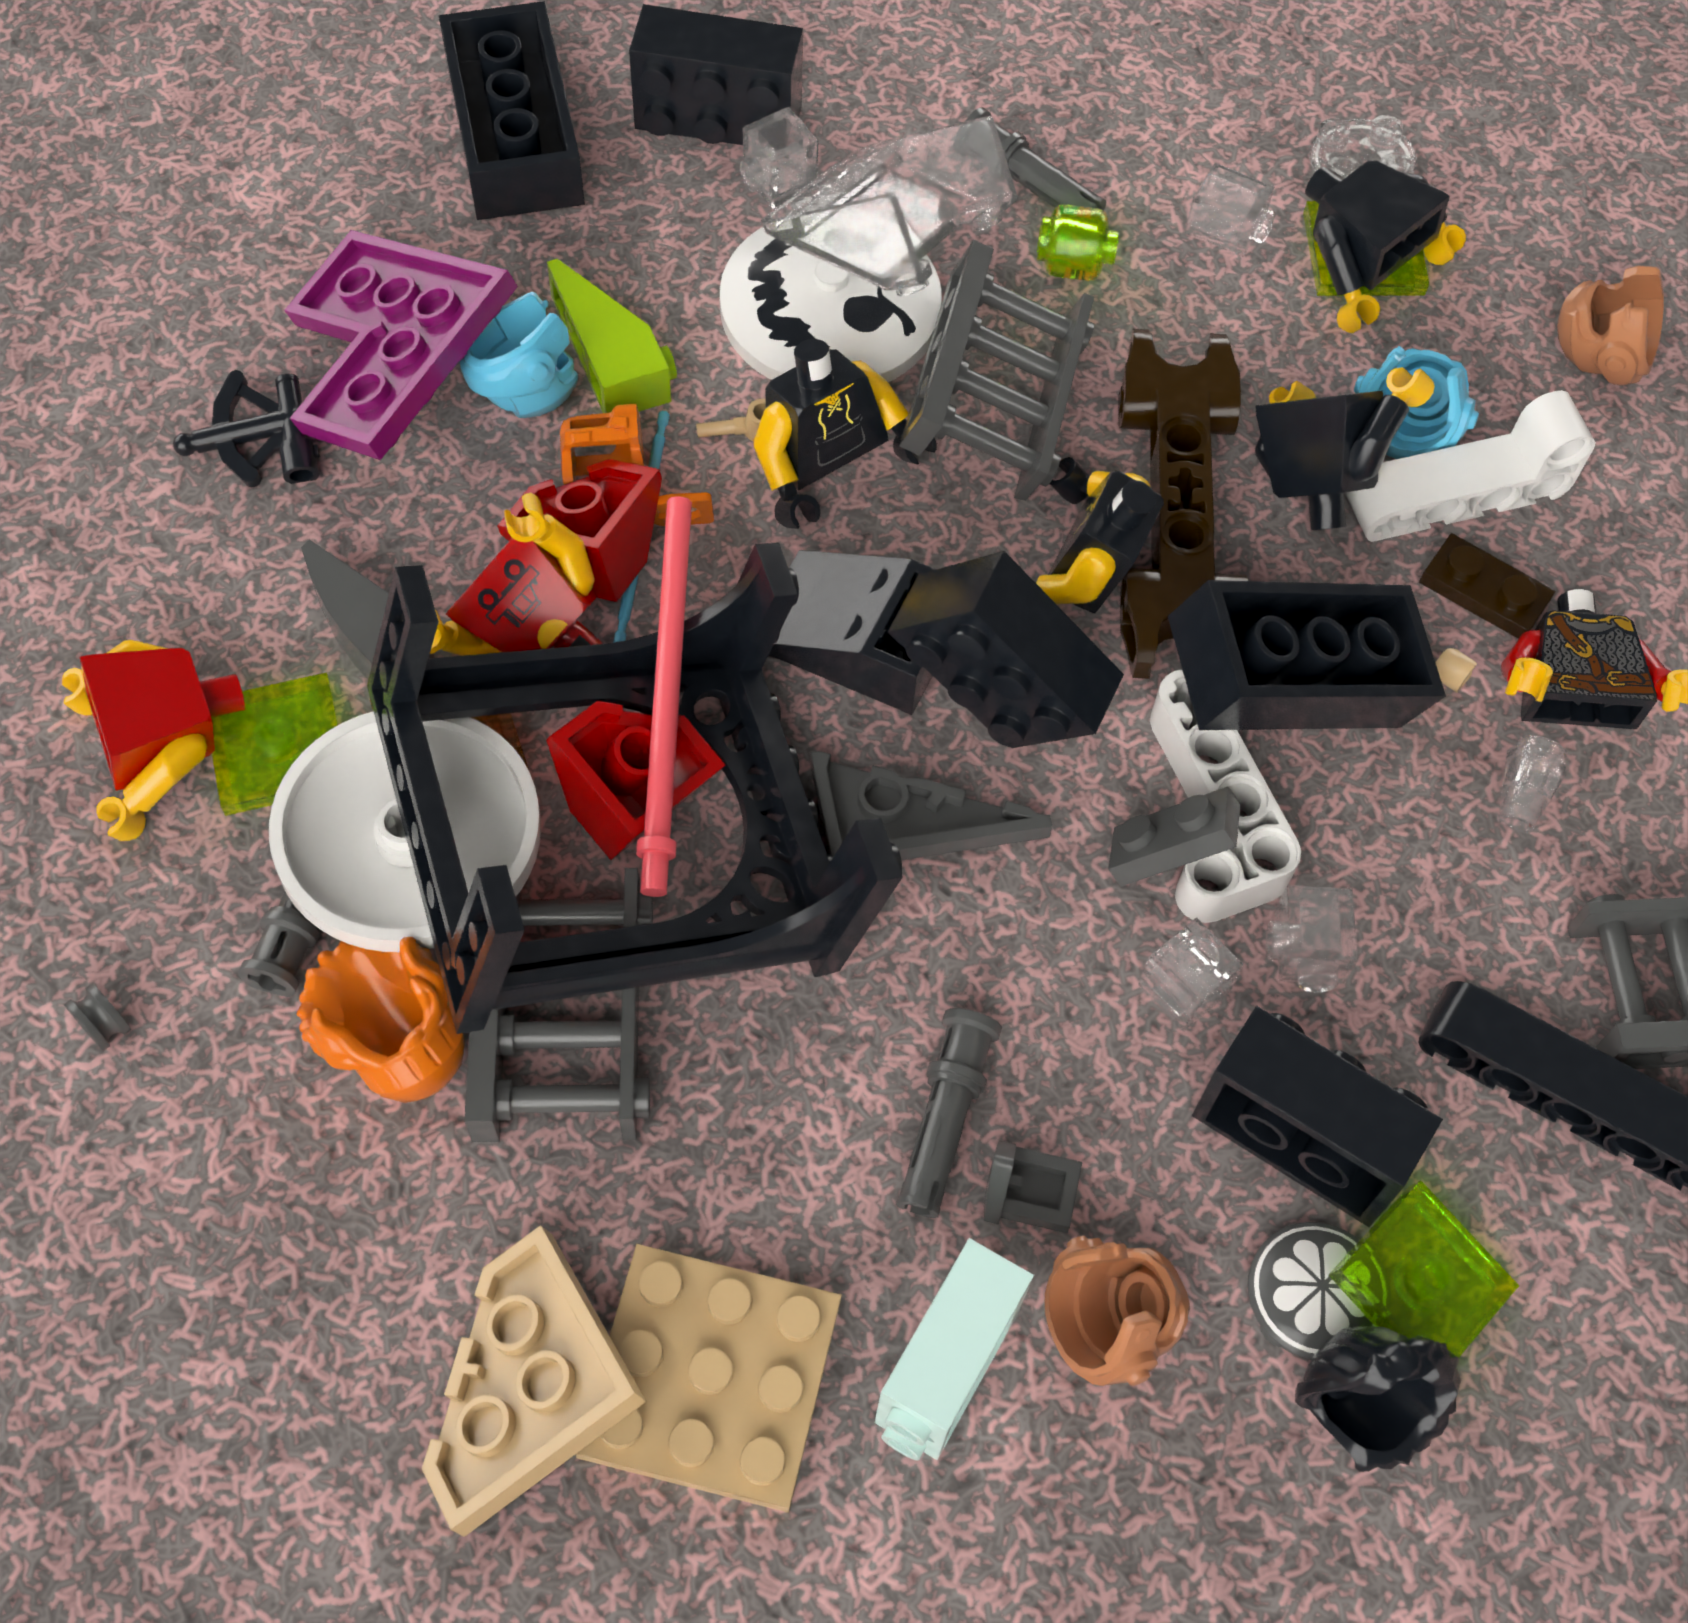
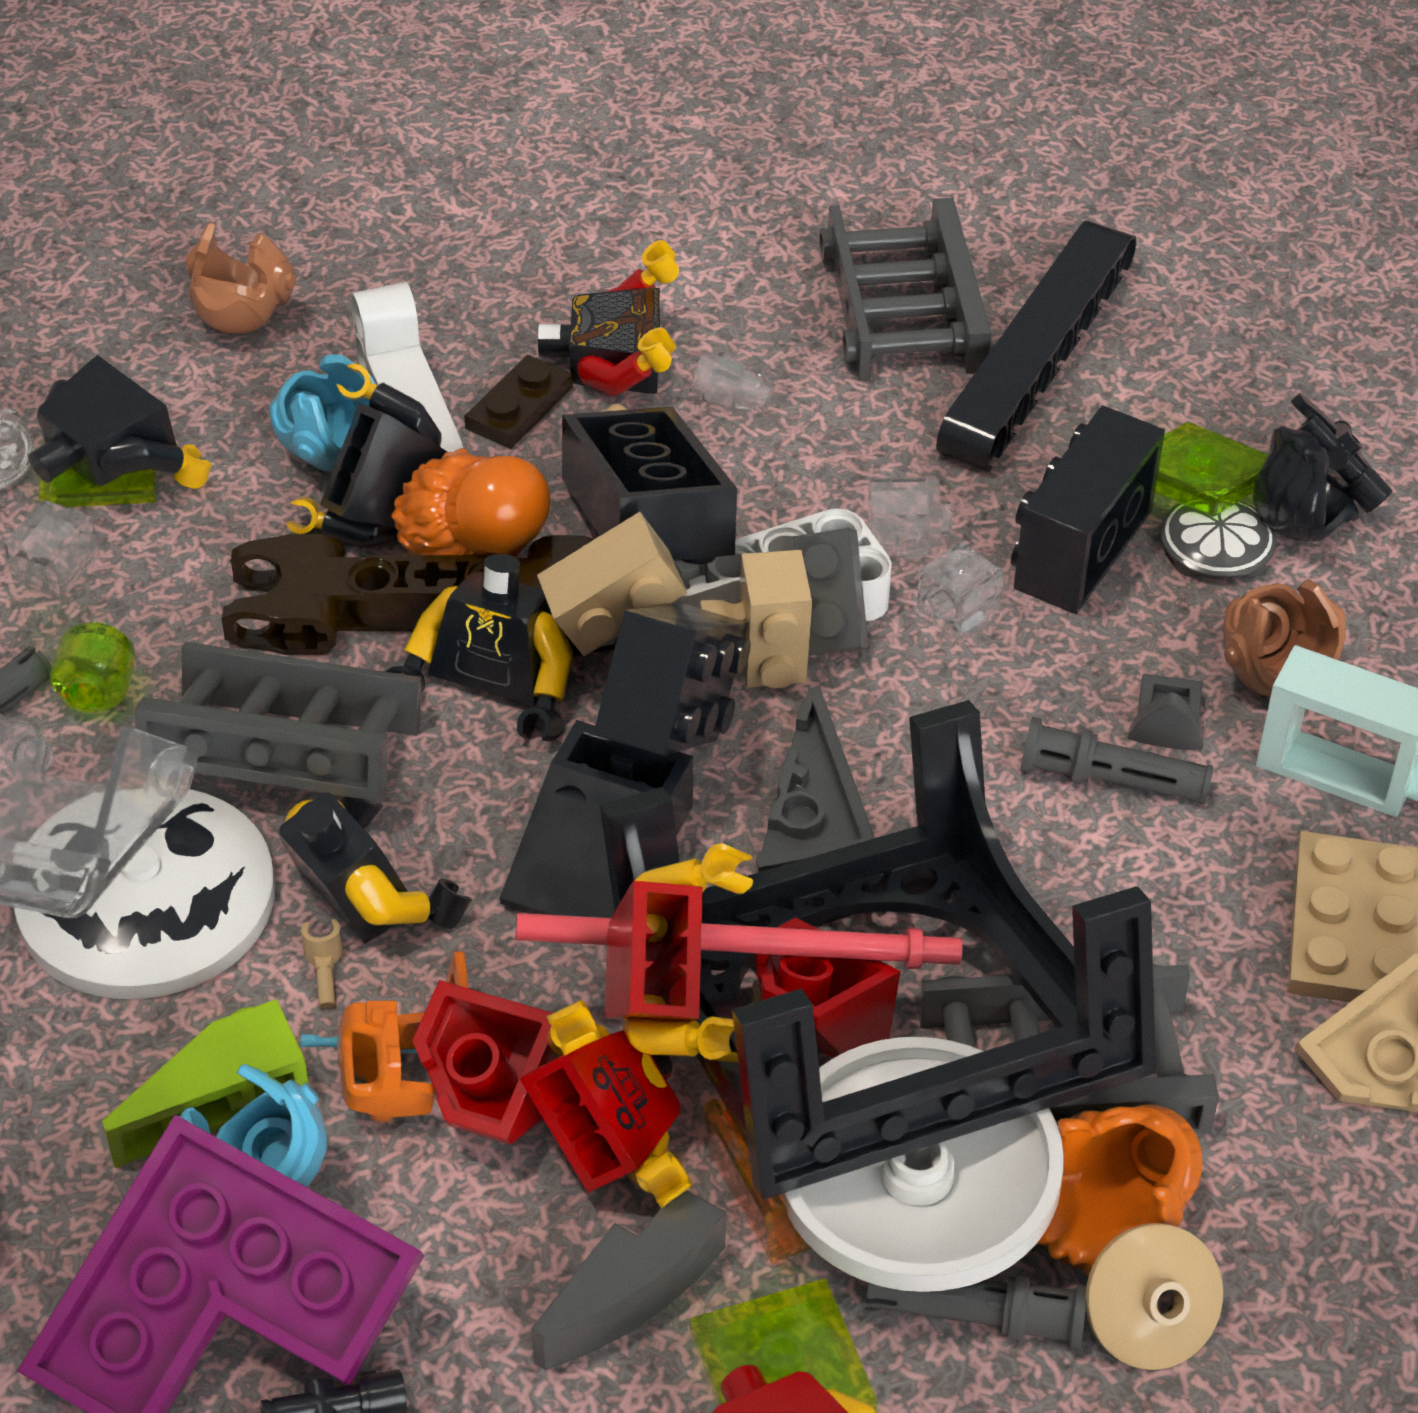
camera: 90 degrees left, 15 degrees down
(262, 1034) = (1126, 1289): none -> tan dish
(588, 590) = (657, 957): none -> red torso
(1124, 767) = (778, 614): none -> tan brick
(1129, 604) = (606, 577): none -> tan brick
(1267, 506) = (471, 506): none -> orange hair
(1437, 1444) = (1344, 456): none -> black piece

